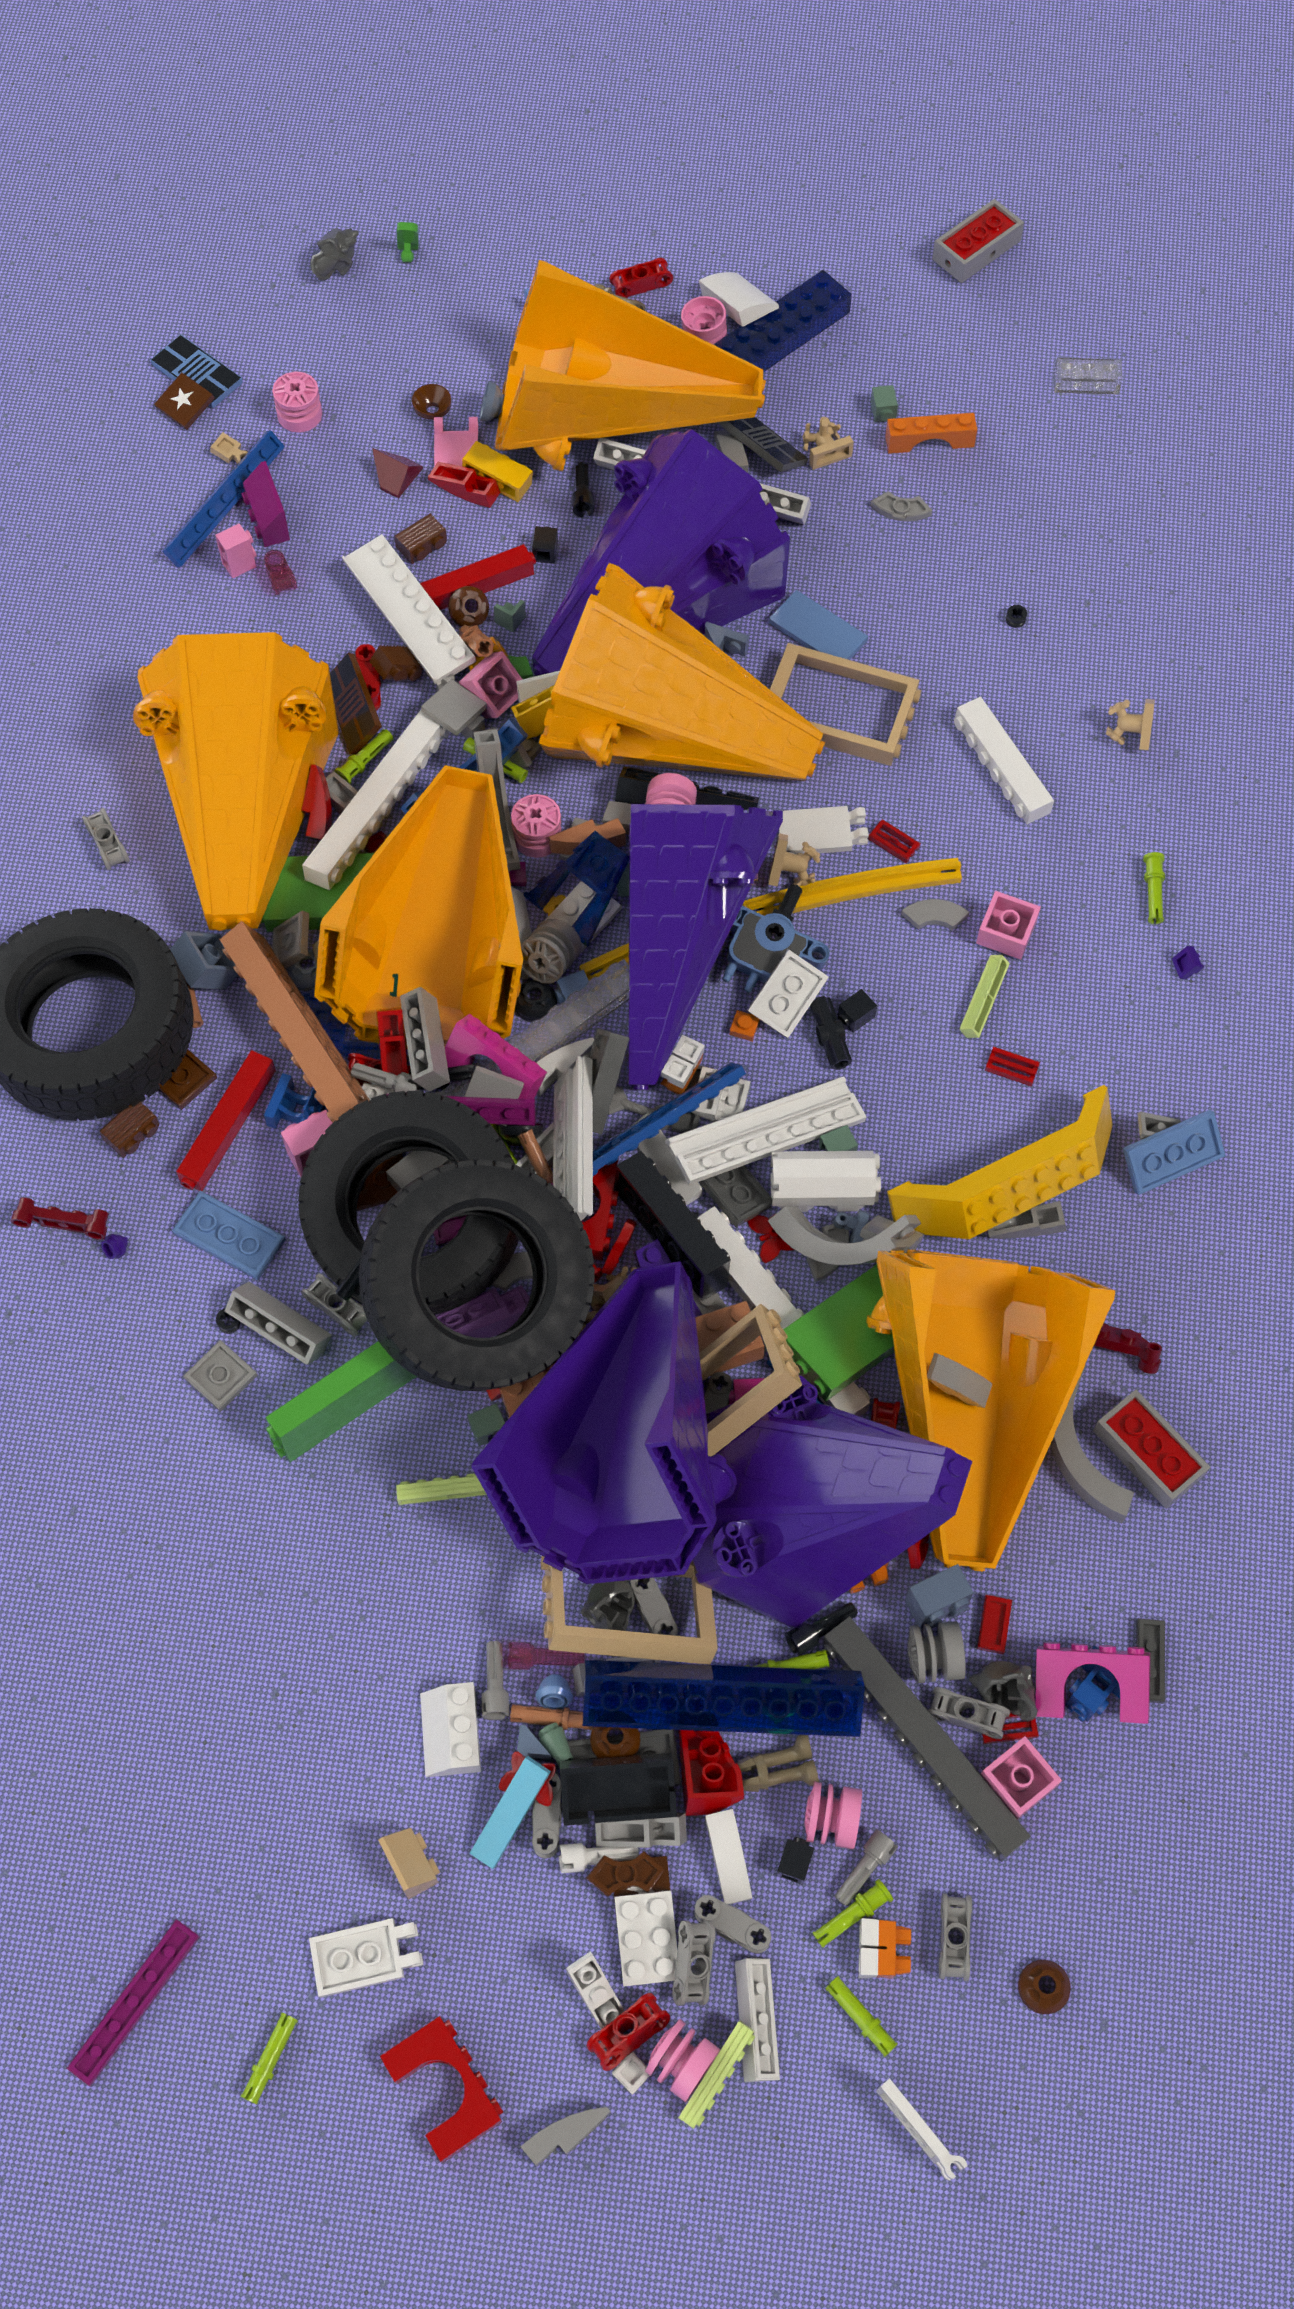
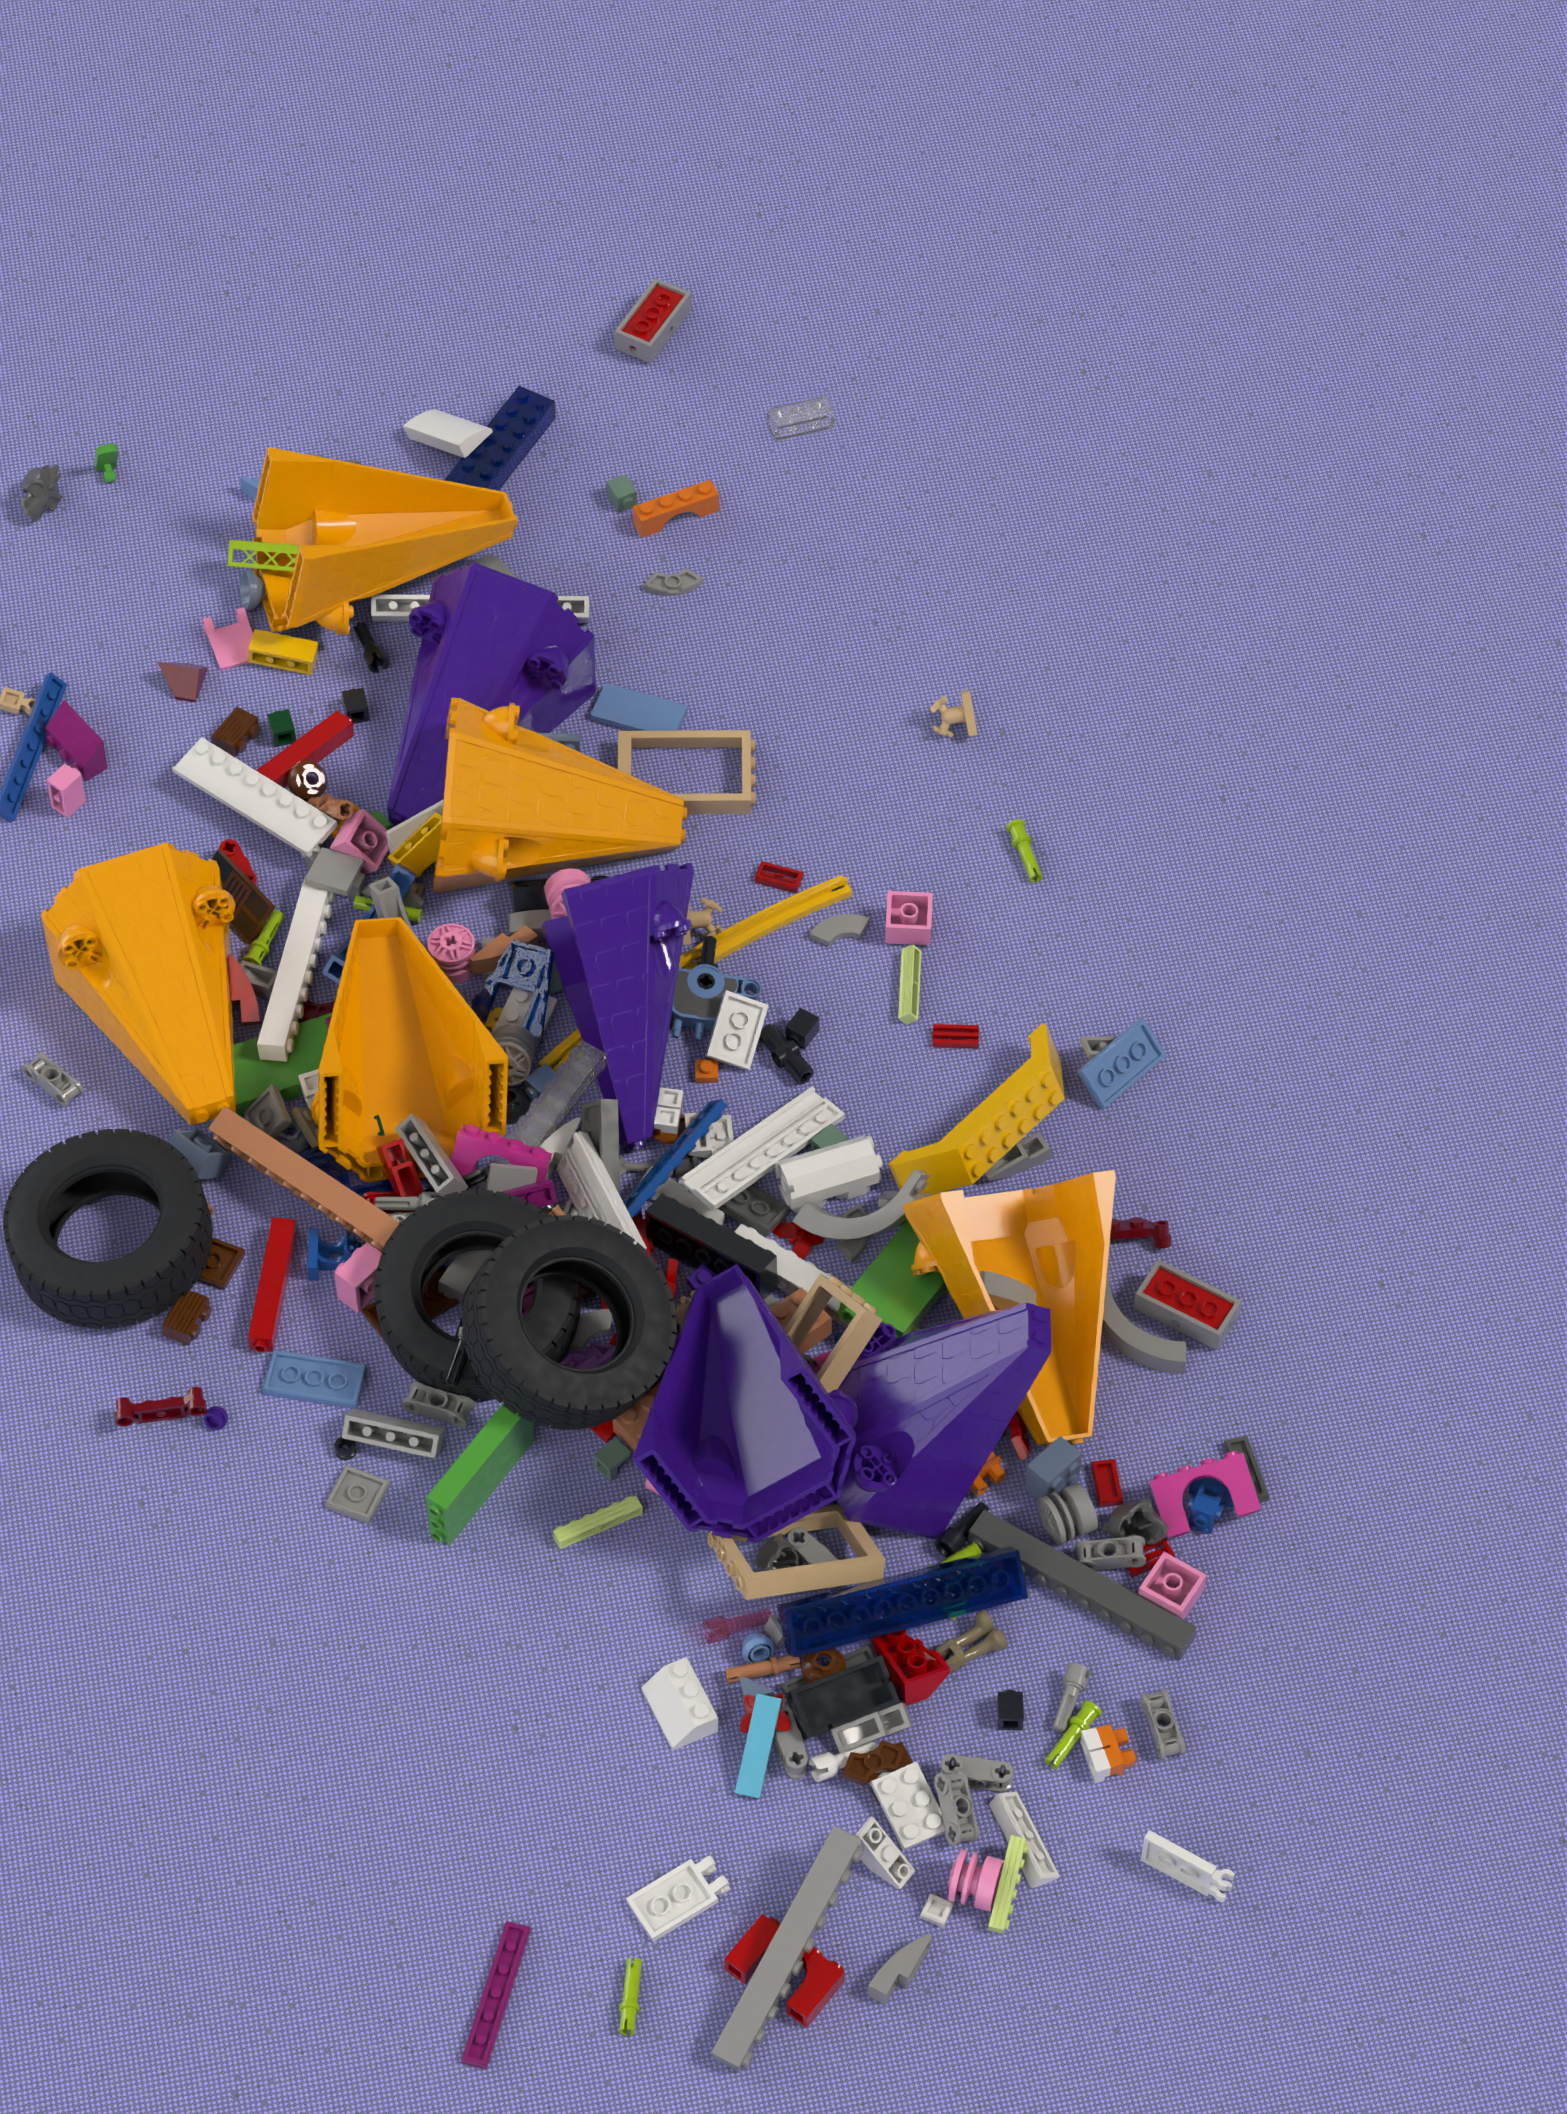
camera: 20 degrees left, 10 degrees down
(280, 574) = (116, 801): clear pink piece -> none
(297, 401) = (64, 639): bright pink wheel -> none
(396, 663) = (263, 848): reddish brown brick -> none
(409, 1862) = (687, 1813): tan slope -> none
(431, 395) = (193, 599): reddish brown piece -> none
(446, 2075) = (787, 1949): none -> light grey brick
(465, 483) = (256, 671): red slope -> none
(466, 546) = (281, 728): none -> dark green brick
(495, 1699) = (708, 1668): light grey piece -> none
(506, 359) = (262, 546): none -> lime fence
(510, 615) = (348, 779): sand green panel -> none
(555, 1742) = (773, 1681): sand green cone -> none
(635, 2017) = (922, 1877): red piece -> none
(641, 278) = (346, 437): red piece -> none
(705, 318) = (426, 459): bright pink wheel -> none
(728, 1856) = (952, 1722): white slope -> none
(765, 443) = (527, 559): tile -> none
(824, 829) = (720, 883): white tile -> none
(827, 449) = (585, 549): tan piece -> none
(833, 1815) = (1028, 1662): bright pink wheel -> none
(852, 1224) = (867, 1203): sand blue piece -> none
(861, 2016) = (1117, 1811): lime pin -> none
(1003, 760) = (851, 779): white brick -> none
(1017, 610) = (818, 656): black bush -> none
(1034, 1997) = (1248, 1749): reddish brown piece -> none
(1187, 962) = (1076, 905): dark purple tile -> none

